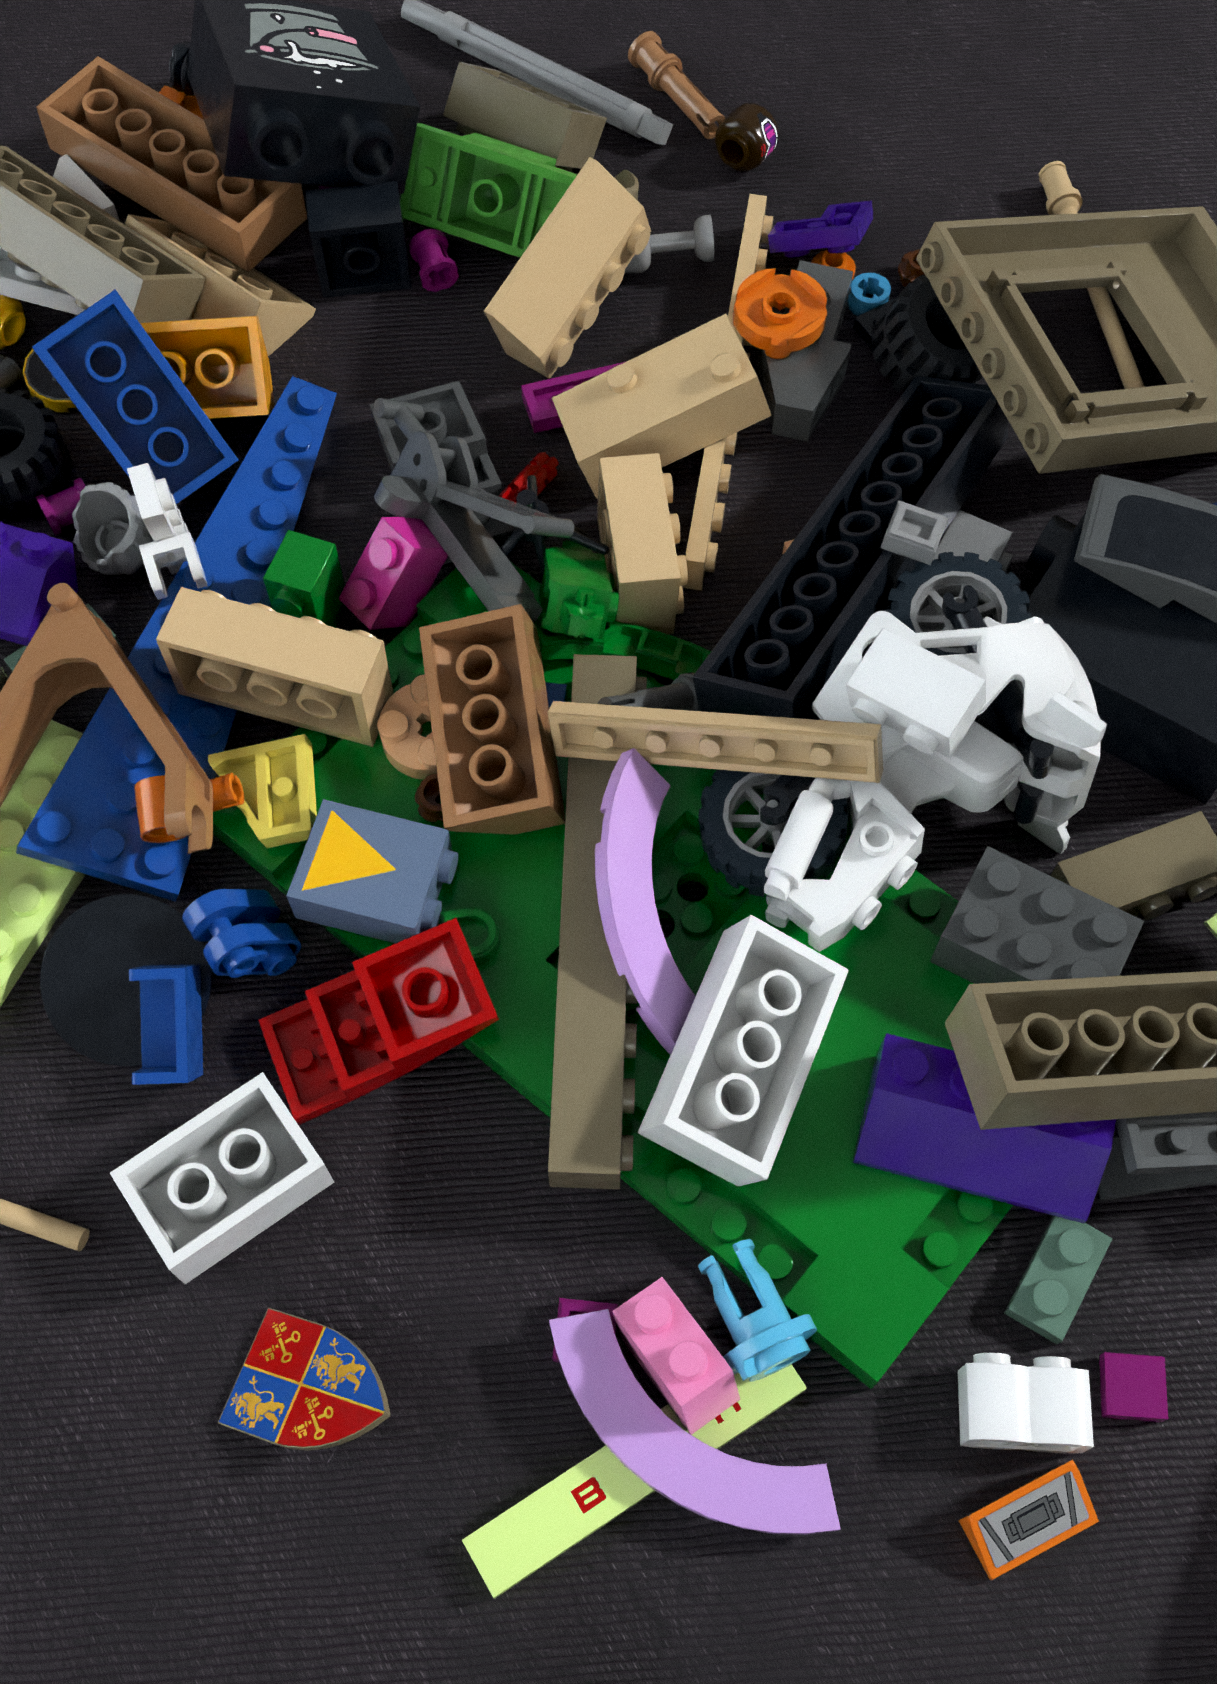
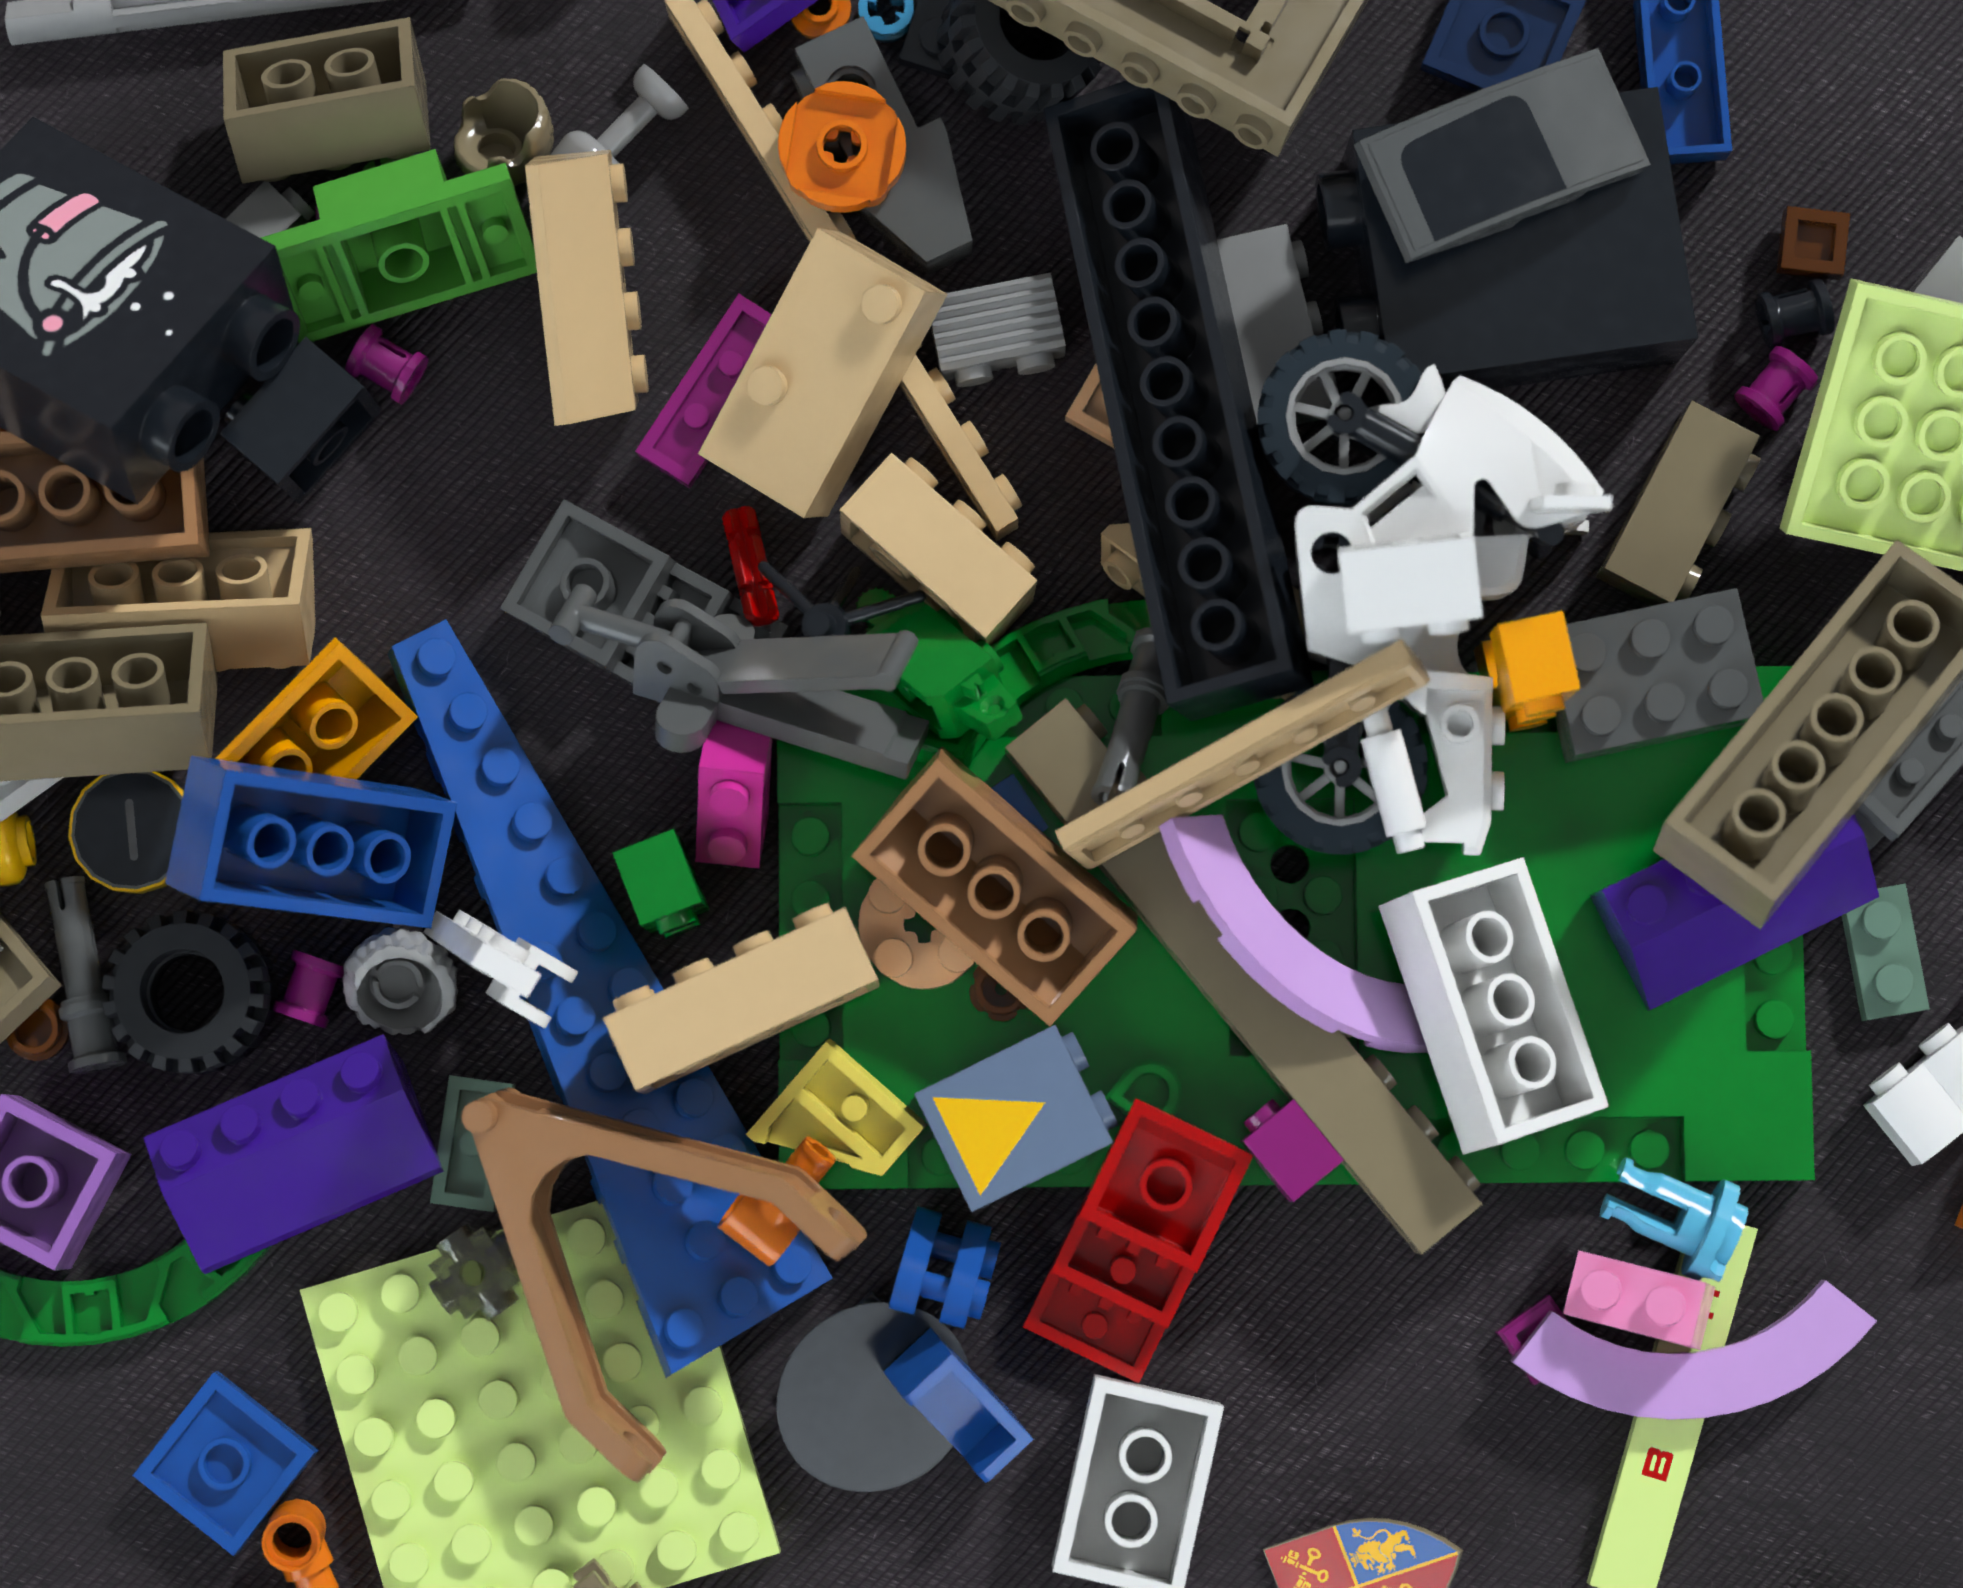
camera: 40 degrees left, 20 degrees up
(525, 1038) = (1289, 1148): none -> magenta brick
(784, 472) = (998, 329): none -> light grey brick
(914, 532) = (1237, 363): light grey tile -> none
(952, 848) = (1529, 669): none -> light orange arch

